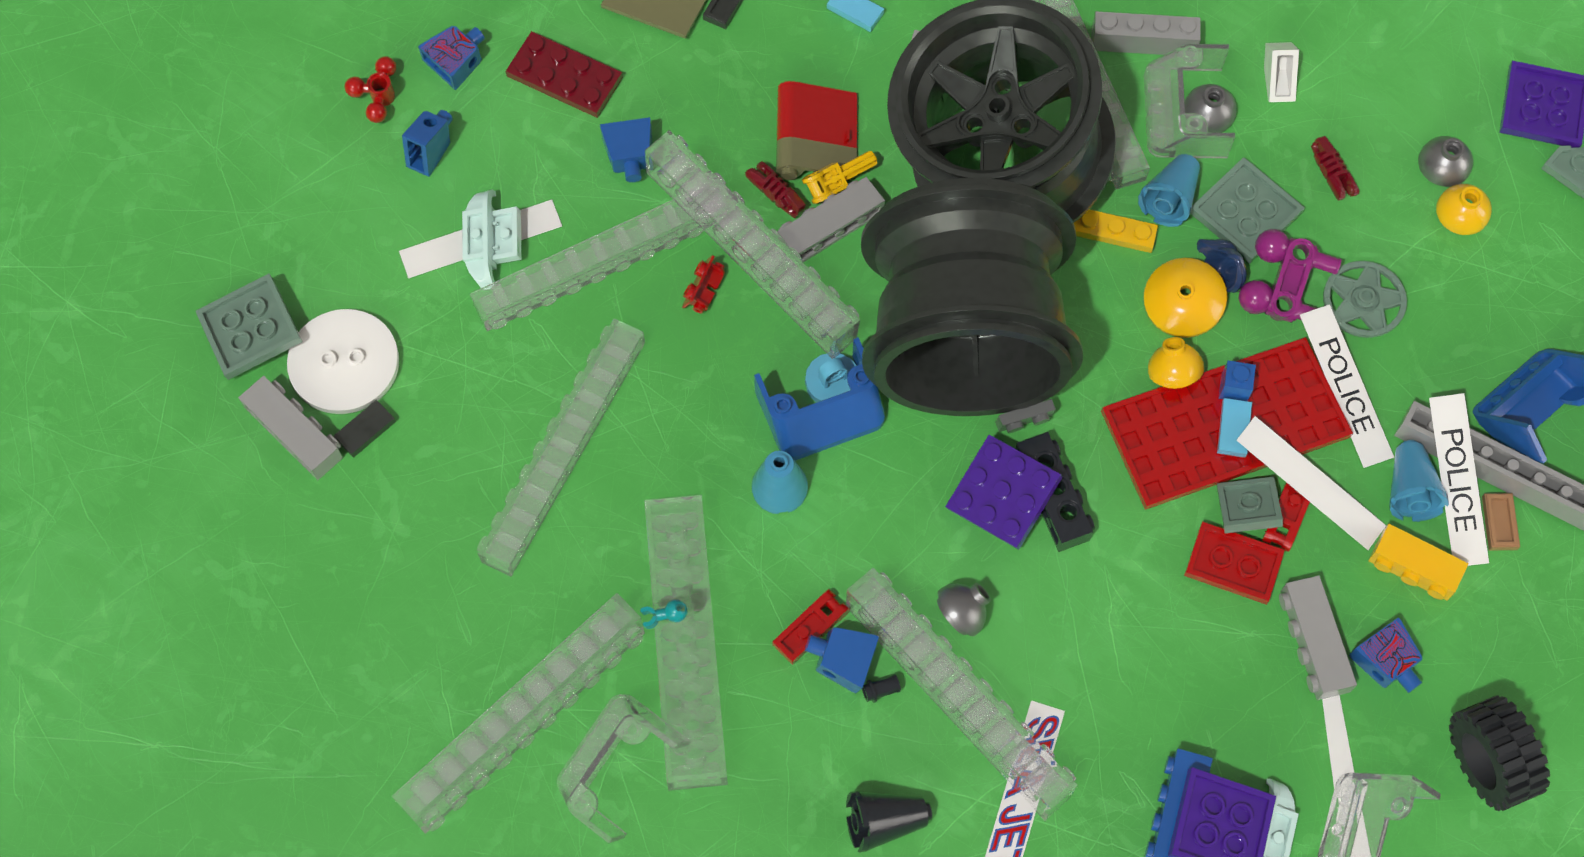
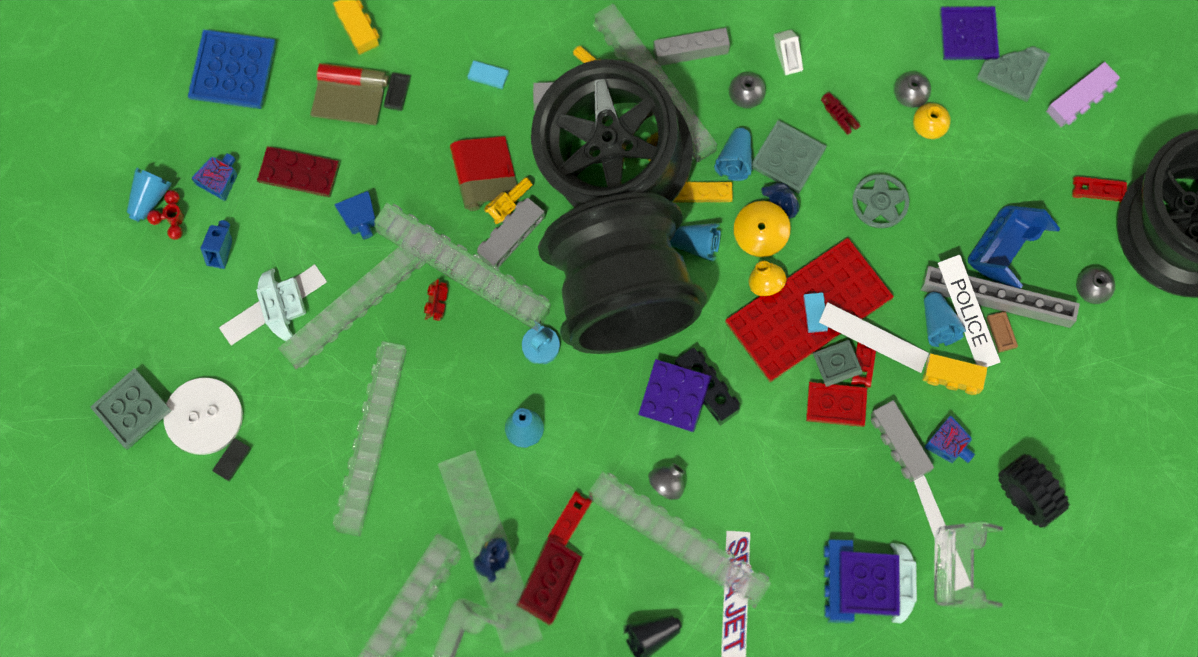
camera: 15 degrees left, 5 degrees up
(290, 427) = (180, 472): light grey brick -> none
(351, 52) = (145, 194): none -> dark azure cone
(670, 612) = (475, 536): teal arm -> none
(684, 647) = (492, 558): none -> dark blue hair
(757, 702) = (549, 581): none -> dark red plate
(776, 189) = (467, 220): dark red hinge -> none
(826, 422) = (544, 378): blue windscreen -> none
(844, 656) = (597, 534): blue torso -> none
(881, 688) = (626, 549): black pin -> none
(1014, 420) = (669, 344): dark grey plate -> none
(1091, 289) = (698, 240): none -> dark azure cone
(1167, 125) = (721, 110): clear windscreen -> none
(1237, 381) = (810, 281): blue brick -> none
(1291, 277) = (828, 202): magenta piece -> none
(1346, 385) = (882, 264): white sticker -> none

